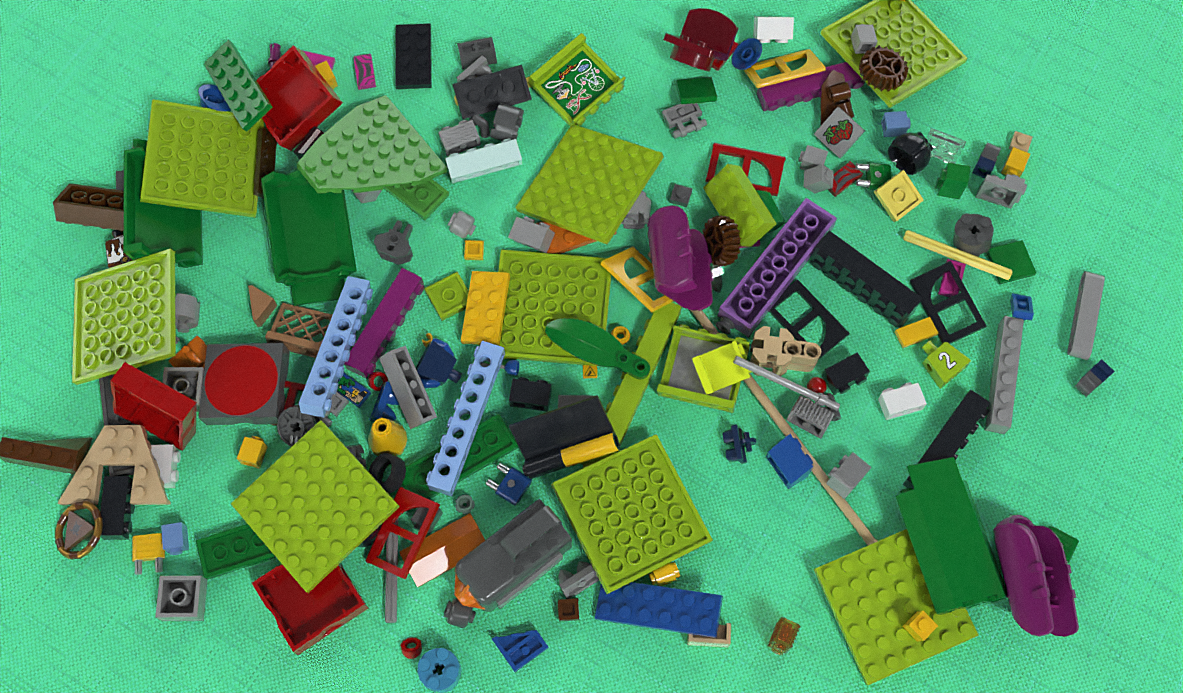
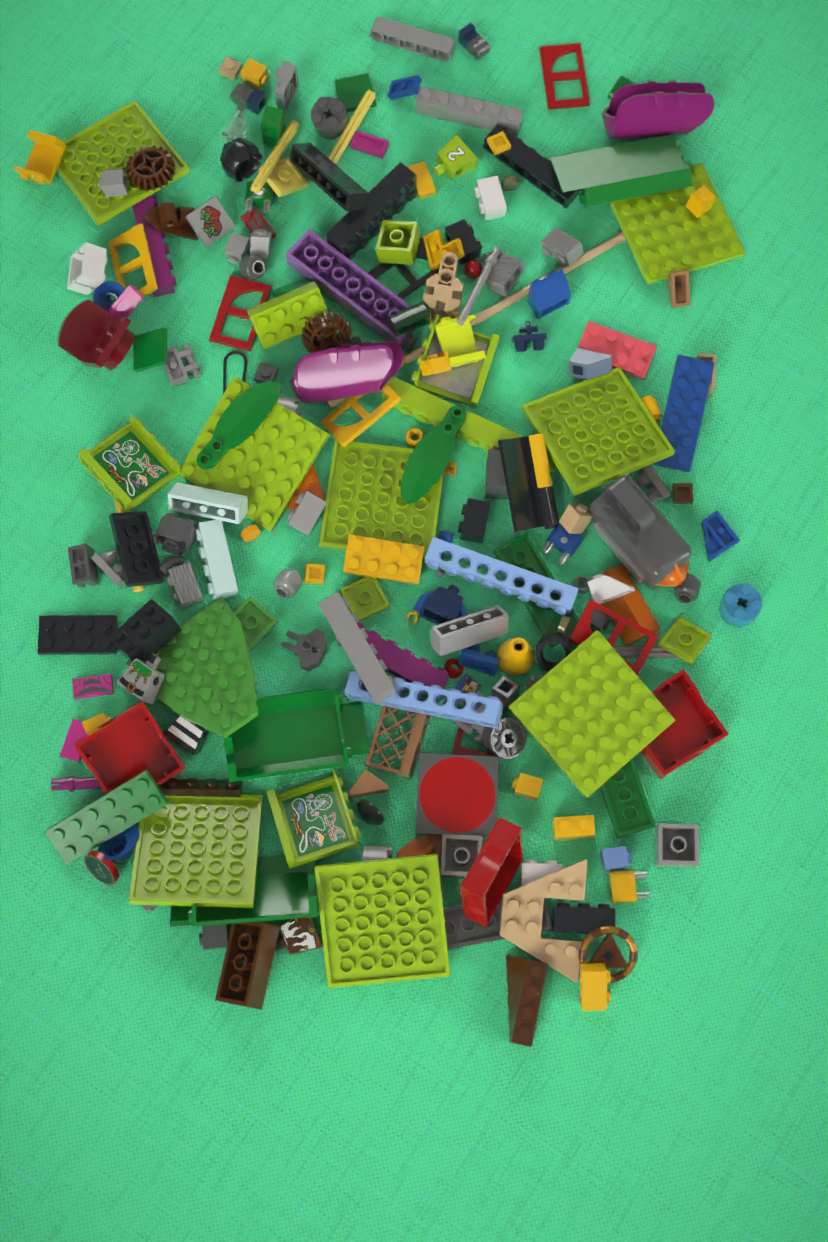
camera: 90 degrees left, 5 degrees up
(48, 515) = (594, 986): none -> yellow brick
(194, 86) = (101, 869): none -> tile
(207, 496) = (573, 827): none -> yellow brick
(226, 254) = (314, 820): none -> panel
(233, 307) = (369, 813): none -> black hat
(346, 426) = (506, 691): none -> dark grey brick
(359, 101) = (143, 678): none -> light grey torso
(387, 281) = (357, 648): none -> light grey brick
(401, 610) = (685, 640): none -> lime tile
(408, 104) = (145, 632): none -> black brick
(411, 653) = (723, 633): red piece -> none
(414, 480) = (563, 625): none -> olive tile
(455, 526) = (607, 588): none -> white slope
(512, 189) = (250, 533): none -> light orange tile
(530, 491) = (575, 518): none -> tan brick
(538, 147) = (208, 503): none -> light aqua brick
(616, 163) = (240, 421): none -> green plant
(678, 176) = (224, 367): none -> black piece
(692, 343) = (435, 364): none -> yellow brick
(710, 504) = (589, 364): none -> sand blue slope
(734, 539) = (627, 352): none -> coral plate
(741, 65) = (126, 302): none -> tile
(741, 314) = (409, 319): none -> dark green brick
(783, 636) = (709, 312): clear orange brick -> none
(793, 173) = (252, 266): none -> dark grey head
(812, 606) = (678, 288): none -> medium nougat slope
(831, 348) = (436, 248): none -> yellow tile
(834, 306) = (398, 242): none -> lime brick
(895, 123) = (203, 172): medium blue brick -> none
(896, 230) = (328, 176): none -> black brick
(918, 183) = (274, 157): none -> light yellow axle
(922, 421) = (510, 183): none -> olive tile
(923, 287) = (376, 168): black window -> none
(965, 403) = (498, 143): none -> yellow tile
(1092, 462) = (549, 56): none -> red window

